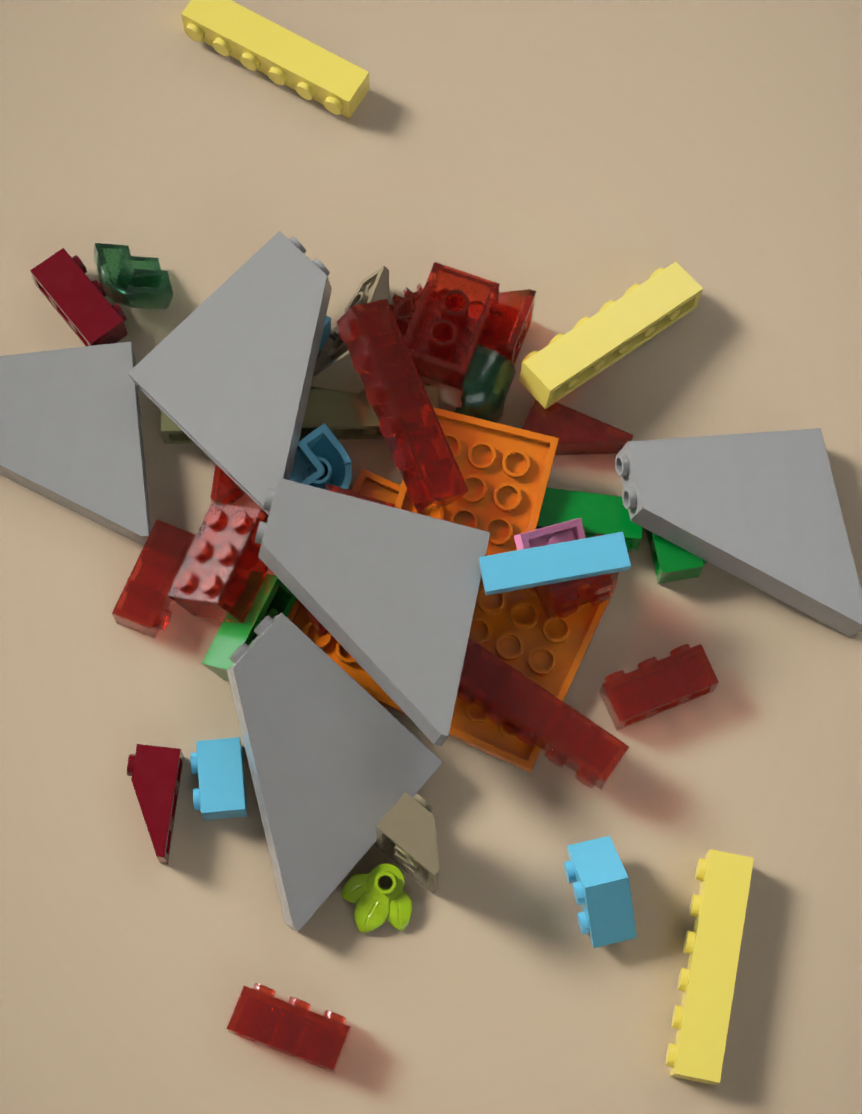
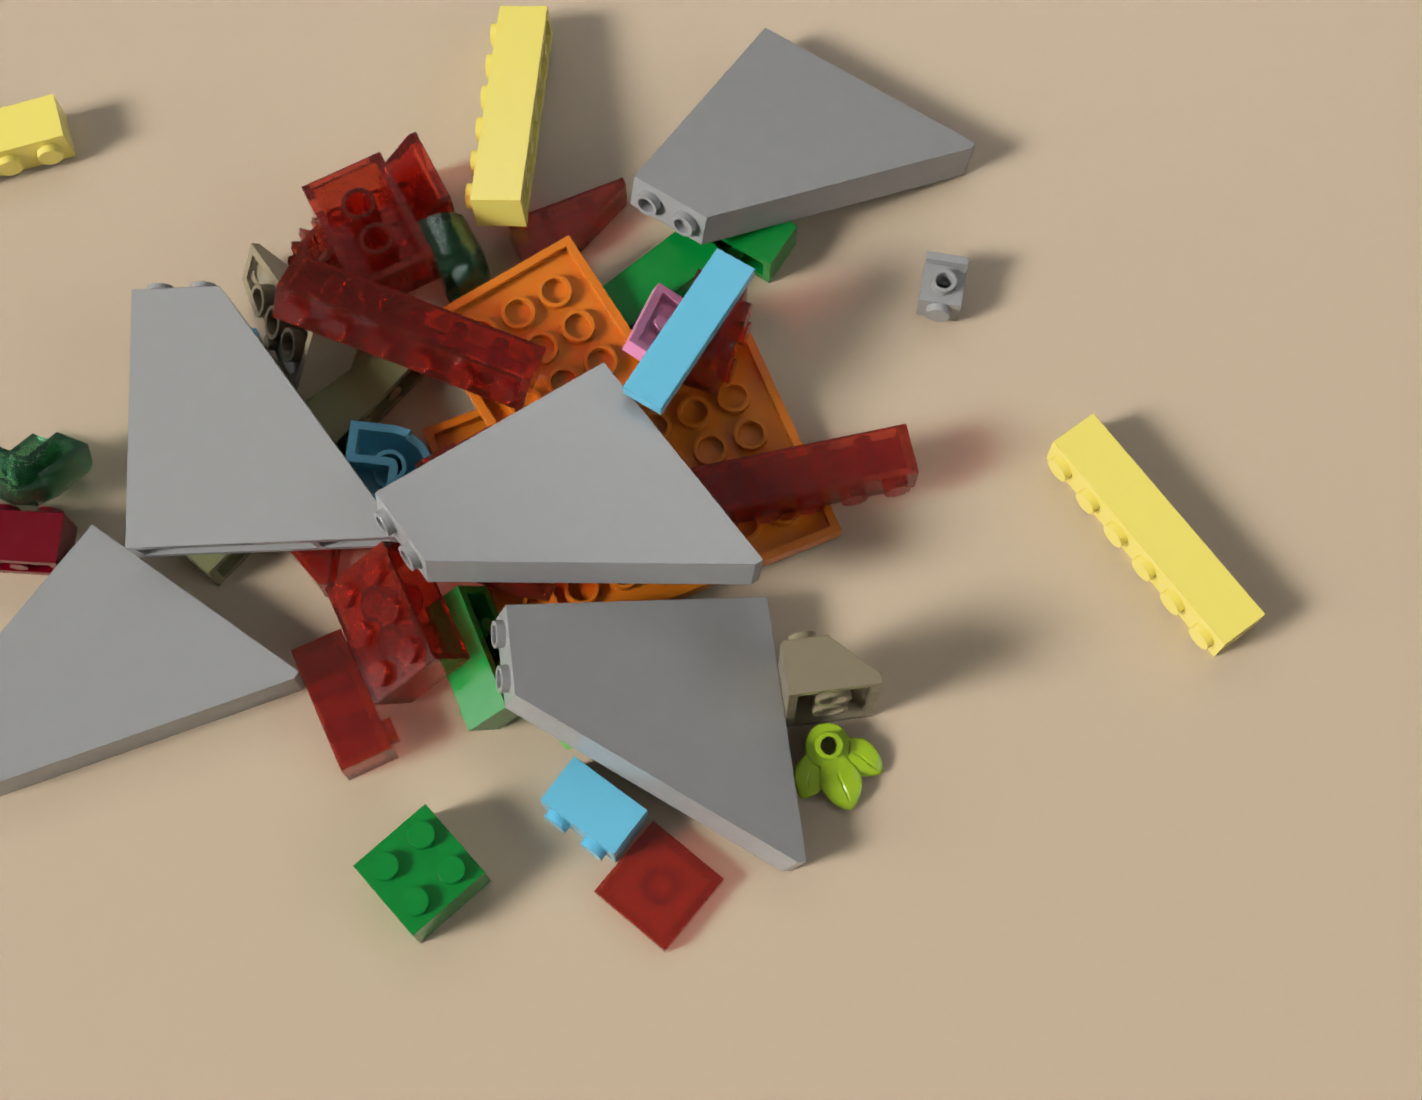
camera: 45 degrees left, 0 degrees up
(94, 714) = (422, 873): none -> green brick
(156, 782) = (548, 879): dark red slope -> none
(210, 858) = (659, 886): none -> clear red tile
(289, 1027) = (885, 948): clear red brick -> none
(601, 890) = (1009, 561): medium azure brick -> none
(658, 685) = (863, 359): clear red brick -> none
(765, 682) = (942, 286): none -> light grey brick

